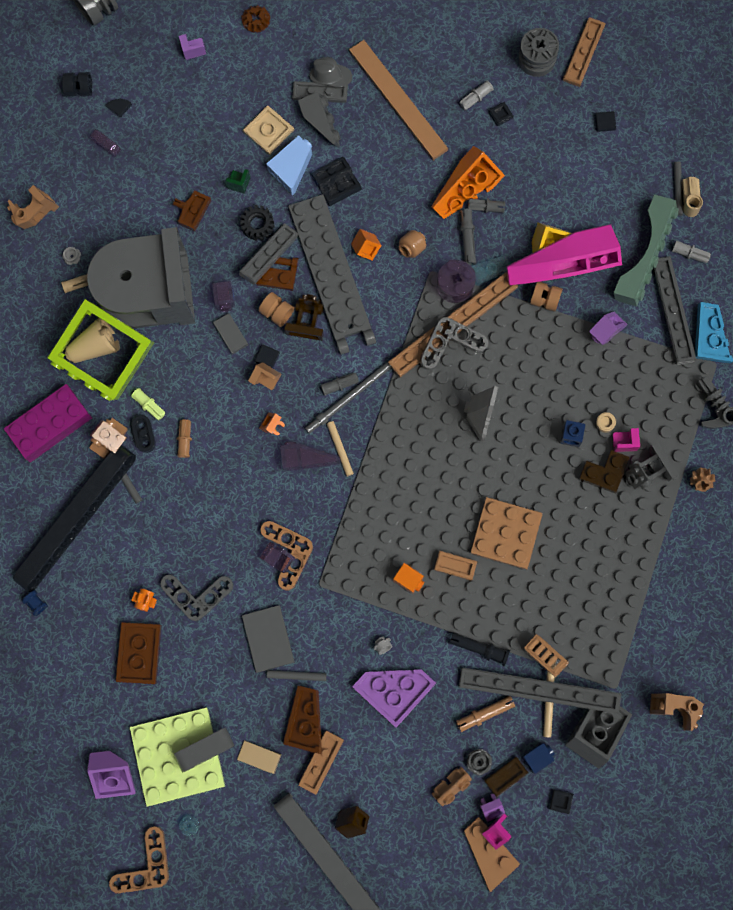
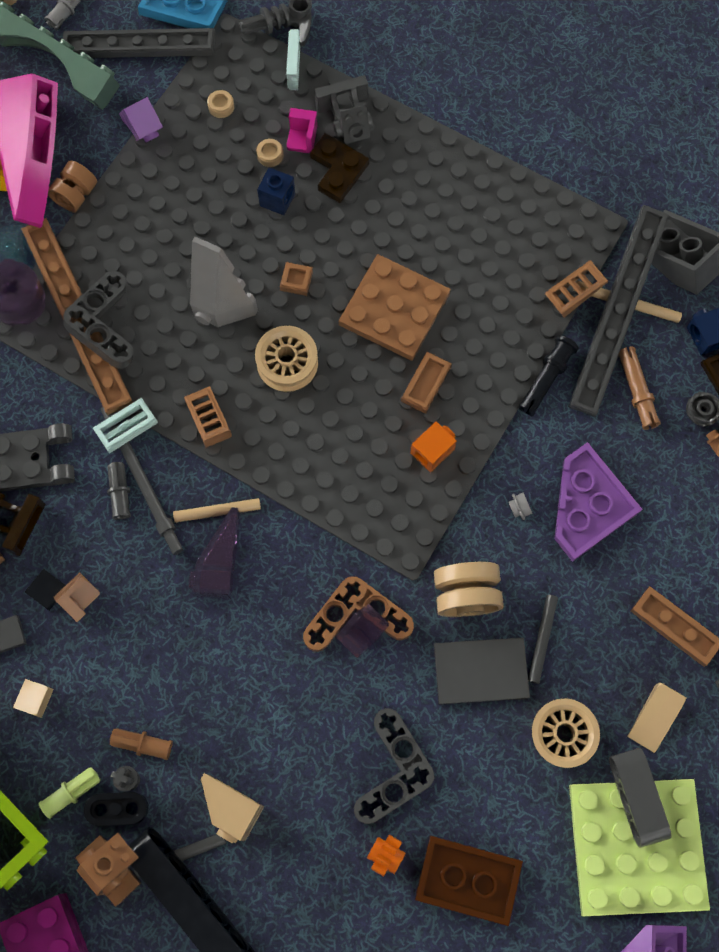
camera: 85 degrees left, 5 degrees down
(153, 499) = (230, 809): none -> tan slope
(160, 434) = (125, 778): none -> dark grey axle
(199, 367) = (33, 698): none -> tan slope
(220, 702) = (585, 717): none -> tan wheel
(270, 423) = (152, 602): orange tile -> none
(304, 721) = (616, 638): reddish brown wing -> none
(313, 619) = (468, 589): none -> tan wheel
(382, 376) = (131, 433): none -> light aqua tile
(390, 425) = (215, 435): none -> medium nougat slope
(458, 453) = (290, 335): none -> tan wheel
(512, 462) = (296, 279): none -> medium nougat tile
(636, 379) = (220, 104): none -> tan tile
(665, 704) = (669, 143): medium nougat tile -> none
(683, 421) = (293, 59): none -> light aqua tile
(702, 479) = (375, 58): medium nougat gear -> none

